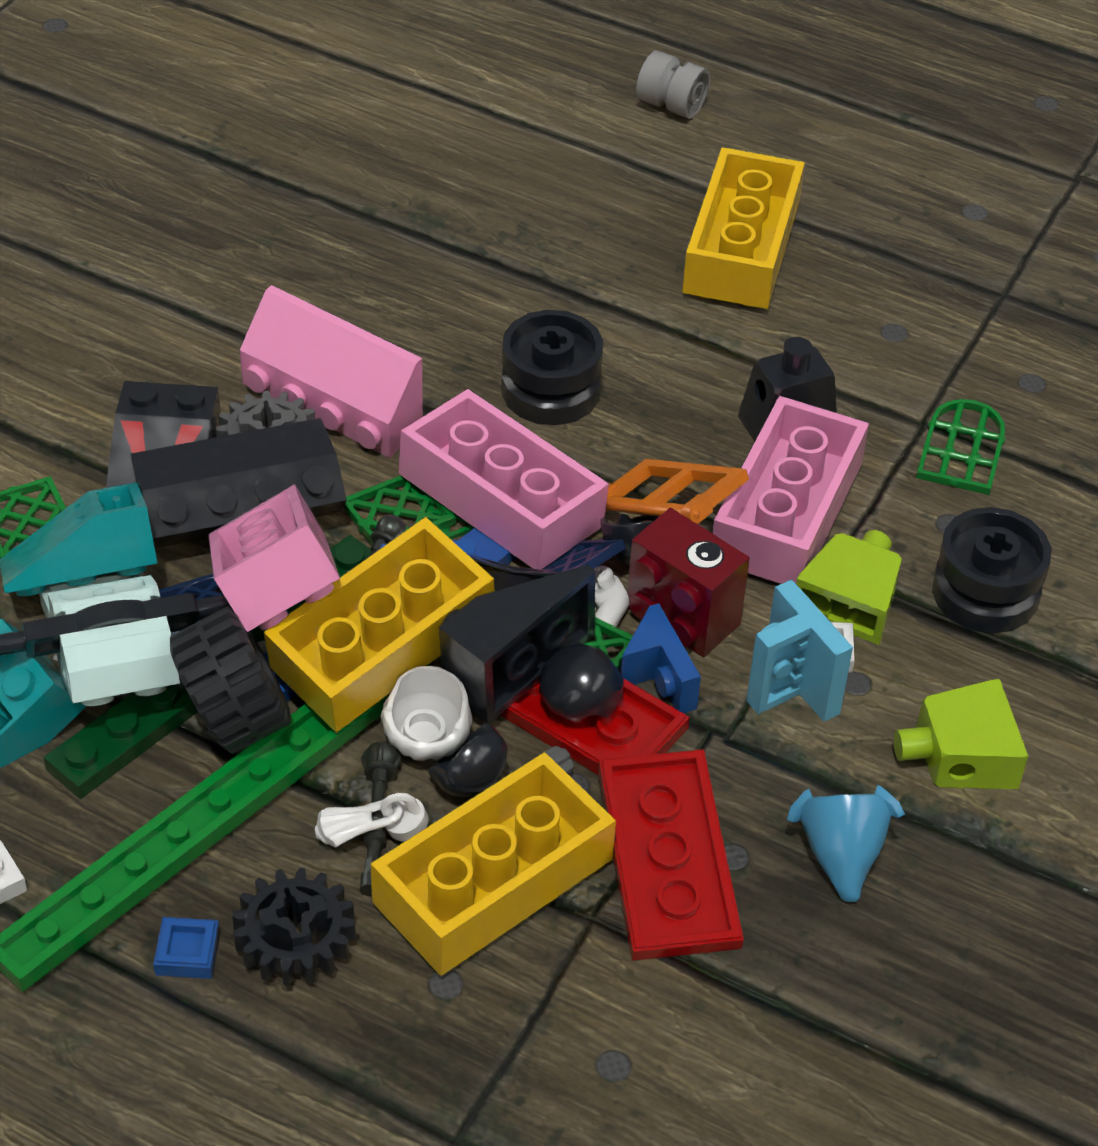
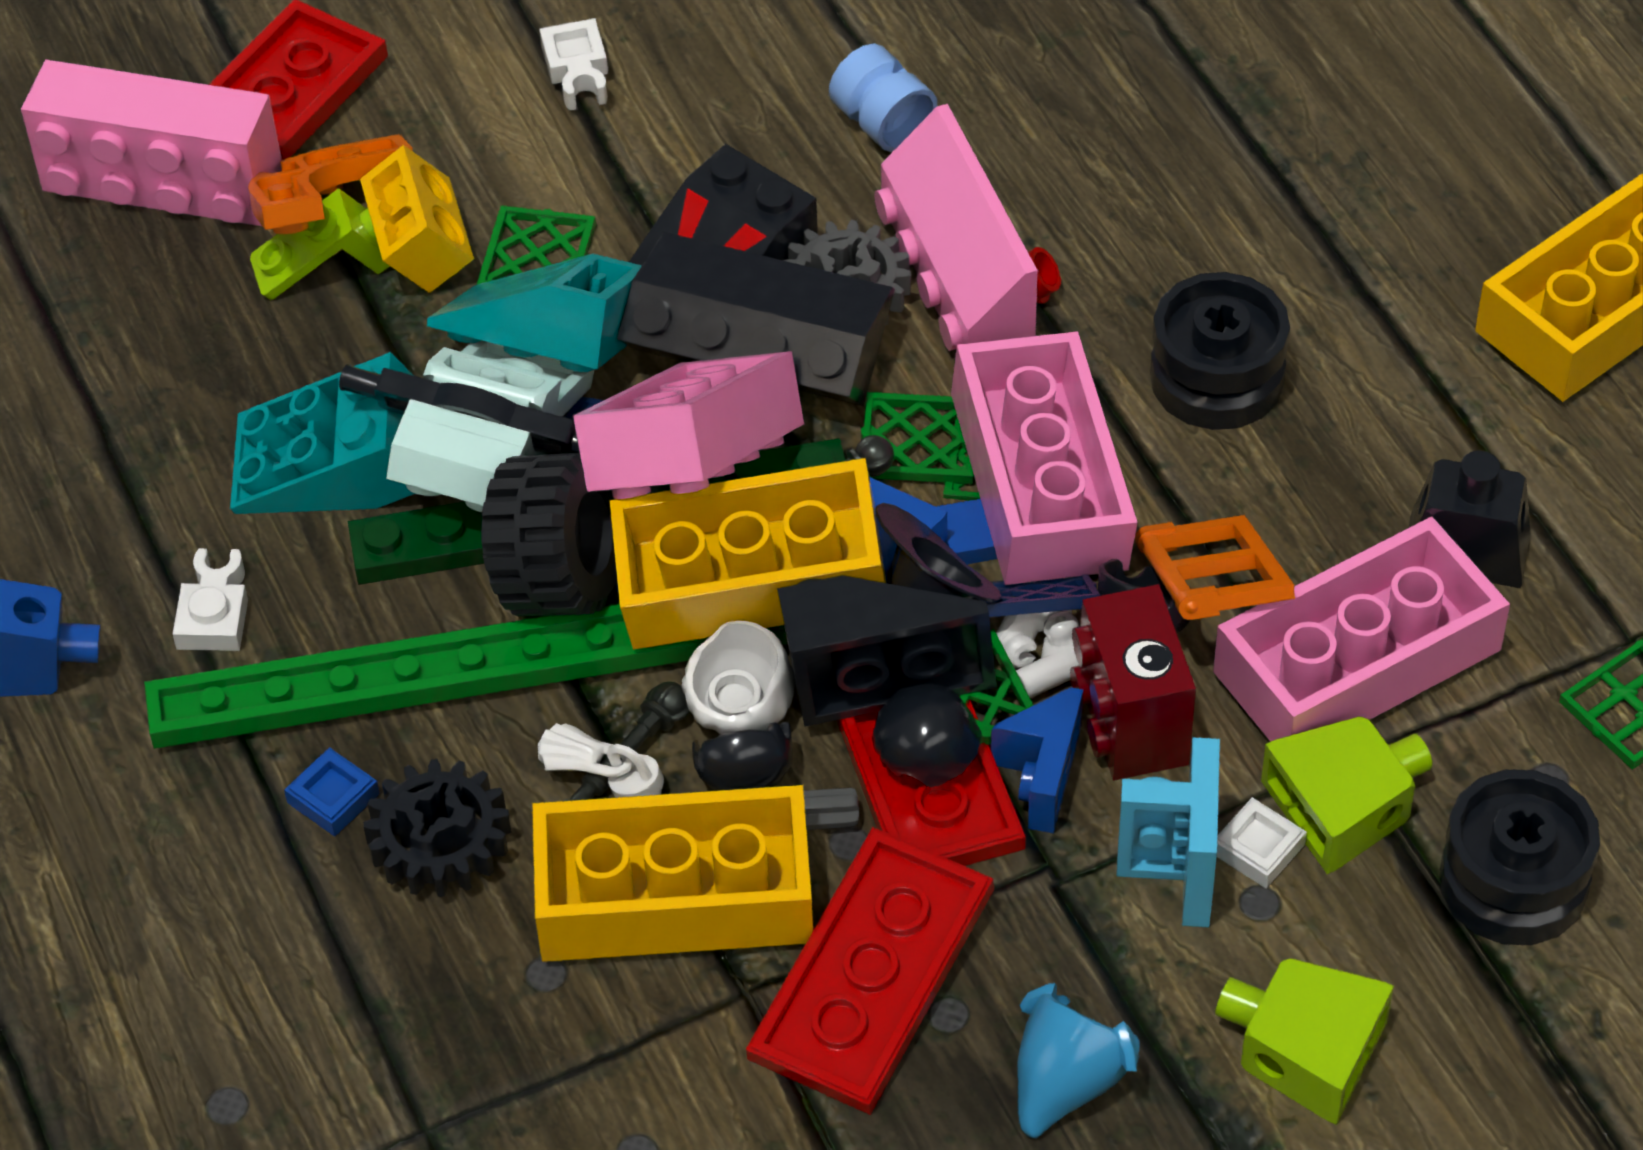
camera: 40 degrees right, 5 degrees up
(203, 314) = (880, 95): none -> light blue wheel

